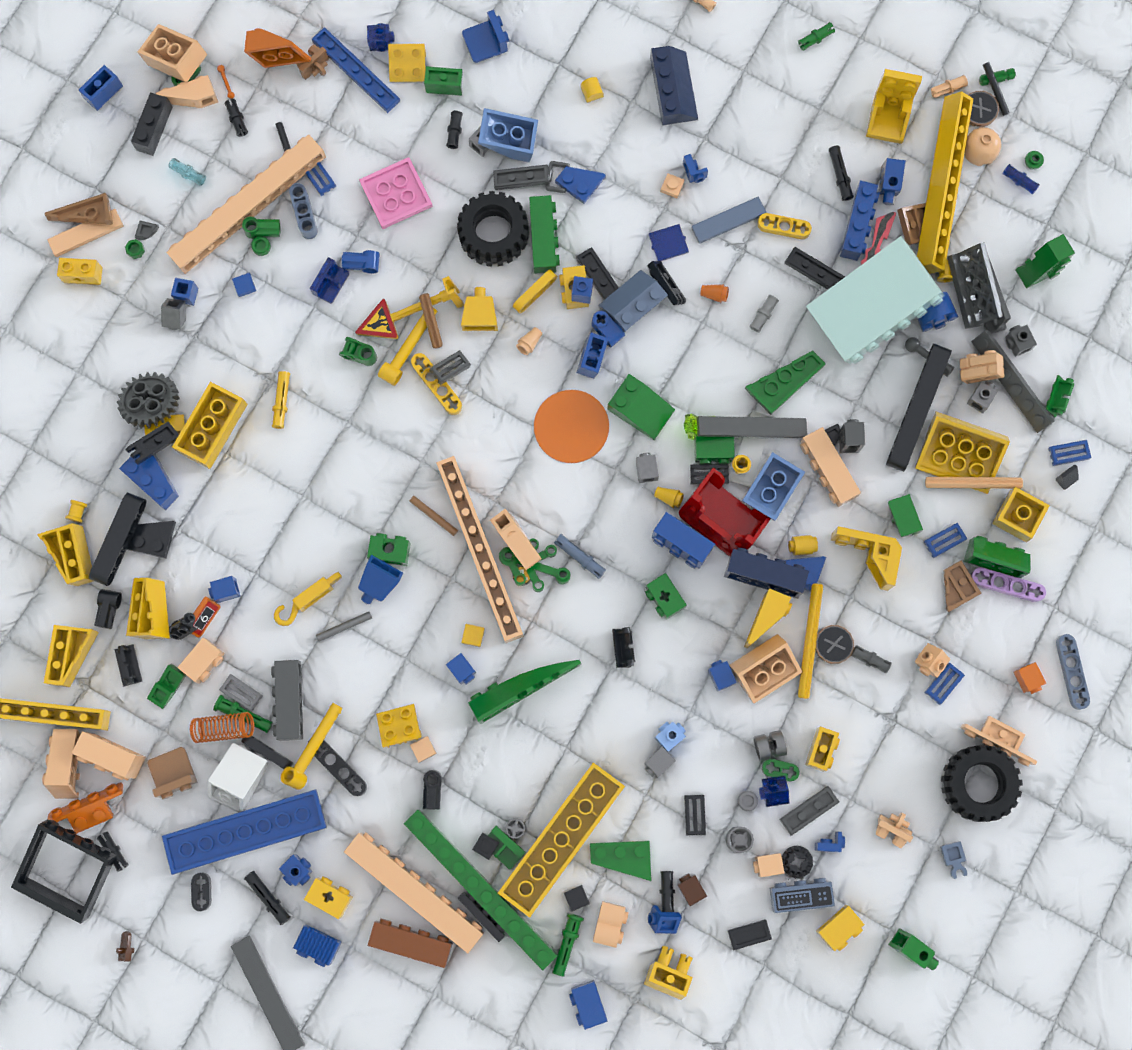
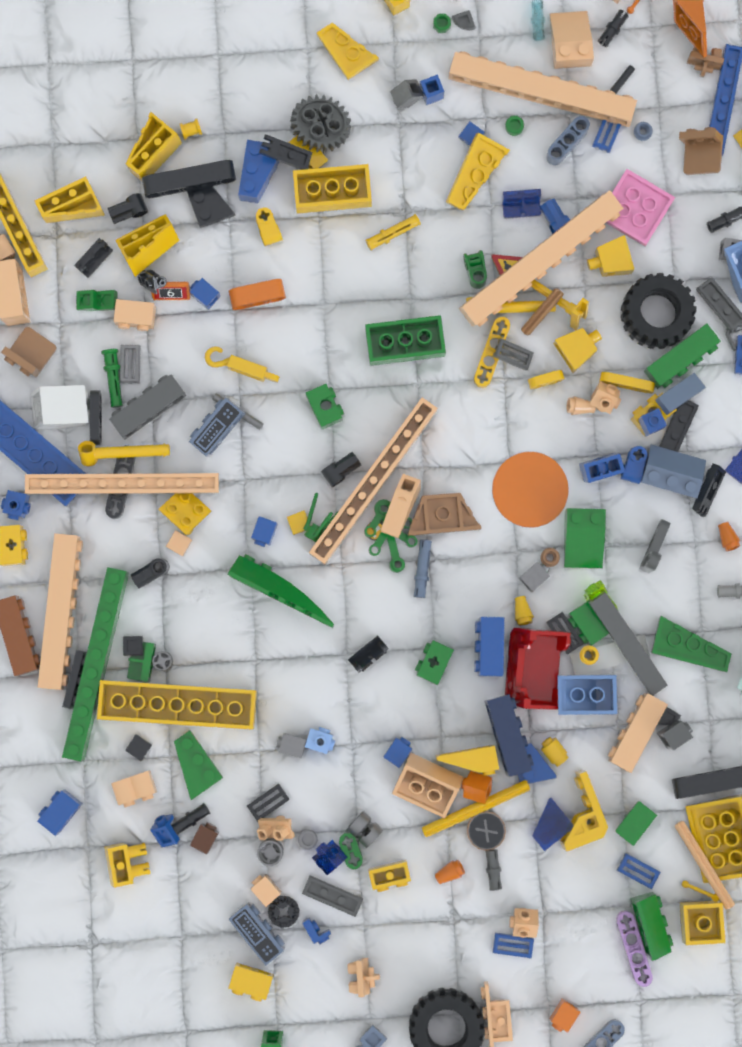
camera: 55 degrees right, 5 degrees up
(104, 341) = (345, 51): none -> yellow wing
(207, 501) = (268, 229): none -> yellow piece
(222, 155) = (571, 40): none -> light nougat slope
(241, 727) = (103, 382): orange piece -> none
(255, 545) = (257, 294): none -> orange beam
(264, 227) = (531, 117): green piece -> none
(273, 295) = (478, 164): none -> yellow wing
(337, 143) = (645, 126): none -> sand blue plate
(338, 766) = (121, 483): none -> light nougat plate
(345, 652) = (216, 426): none -> brick
(373, 436) = (411, 329): none -> green brick
(378, 580) = (293, 414): blue torso -> none
(385, 111) = (702, 151): none -> medium nougat bracket
(386, 293) = (541, 258): none -> light nougat brick
(425, 237) = (612, 258): none -> yellow torso
(433, 515) = (378, 424): medium nougat bar -> none
(451, 575) = (337, 472): none -> black piece
(488, 354) = (546, 379): none -> yellow beam
(490, 625) = (314, 532): none -> green plant
(536, 315) = (605, 397): none -> light nougat brick
(545, 511) = (442, 515): none -> medium nougat wing
(569, 934) = (105, 761): green pin -> none
(573, 254) = (680, 393): none -> sand blue tile
(640, 440) = (556, 557): none -> medium nougat plate
(694, 362) = (652, 556): none -> dark grey beam
(722, 820) = (275, 828): none -> light nougat hips
(749, 934) = (199, 909): black tile -> none
(793, 627) = (477, 787): none -> orange brick
(851, 696) = (450, 872): none -> orange cone
(864, 587) = (551, 826): none -> clear blue wing
(958, 586) = (605, 906): medium nougat wing -> none
(979, 509) = (685, 884): none -> yellow hinge

